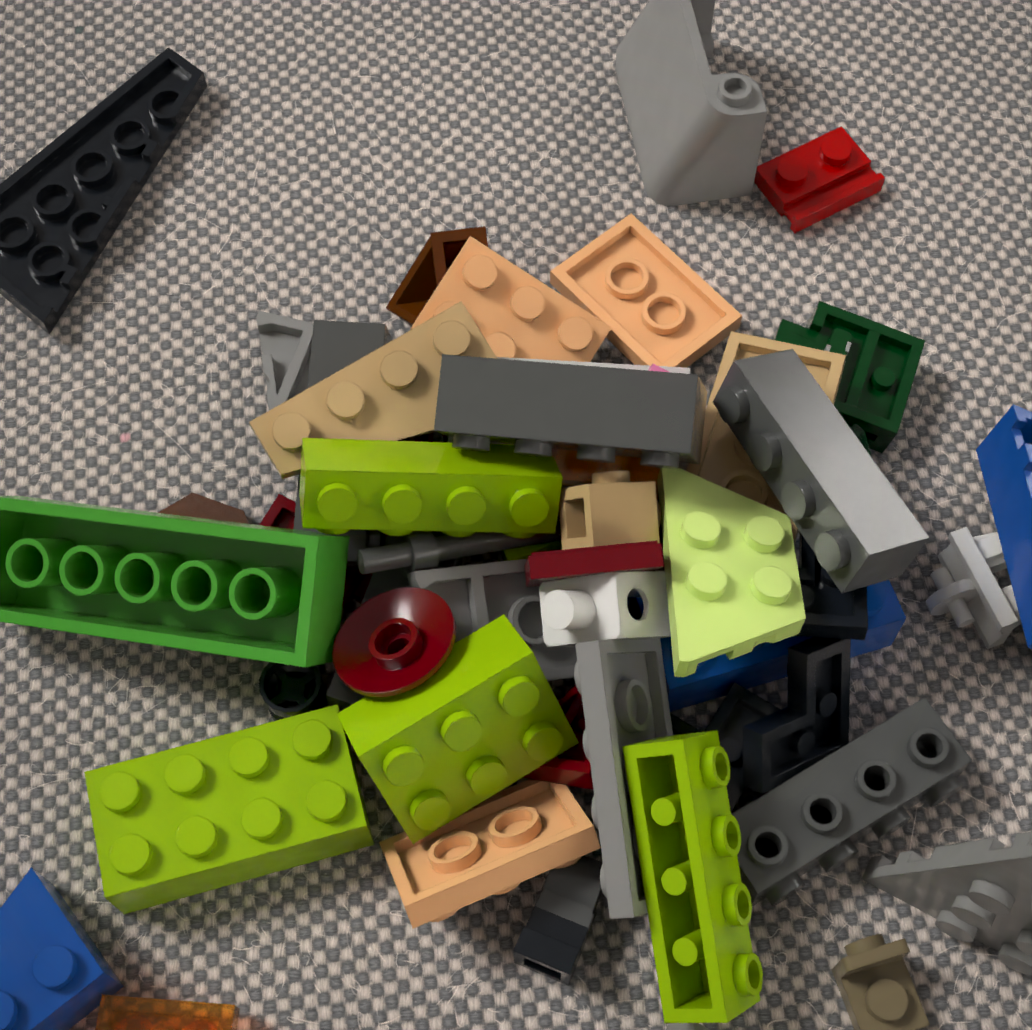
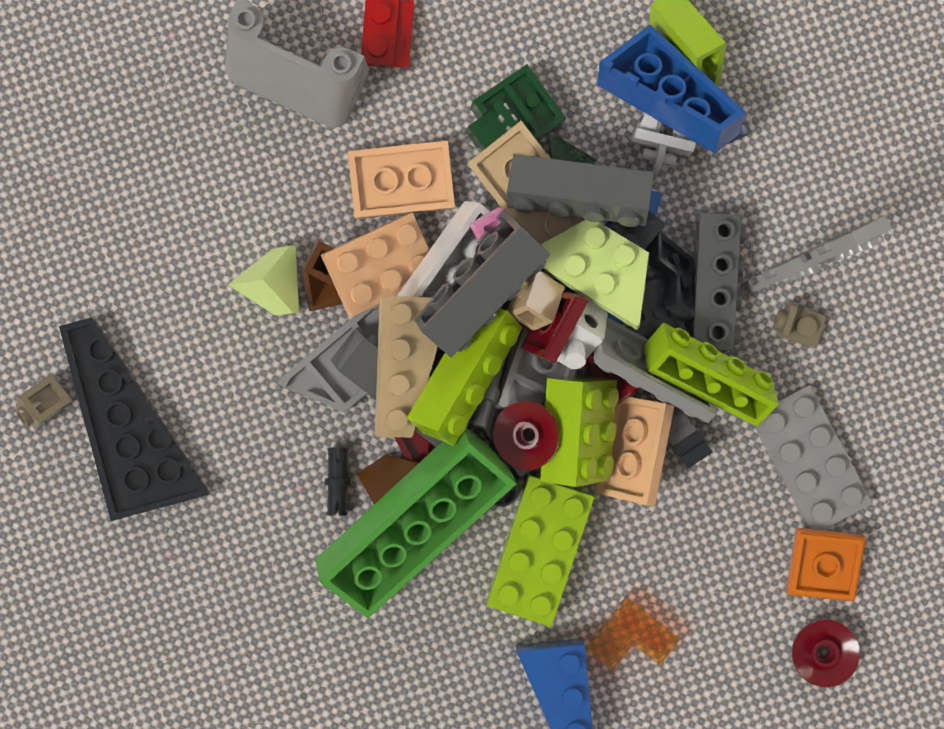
camera: 60 degrees left, 25 degrees up
(56, 84) = (41, 402): none -> dark tan bracket
(165, 471) = (337, 481): none -> black pin
(390, 230) = (272, 281): none -> yellowish green slope

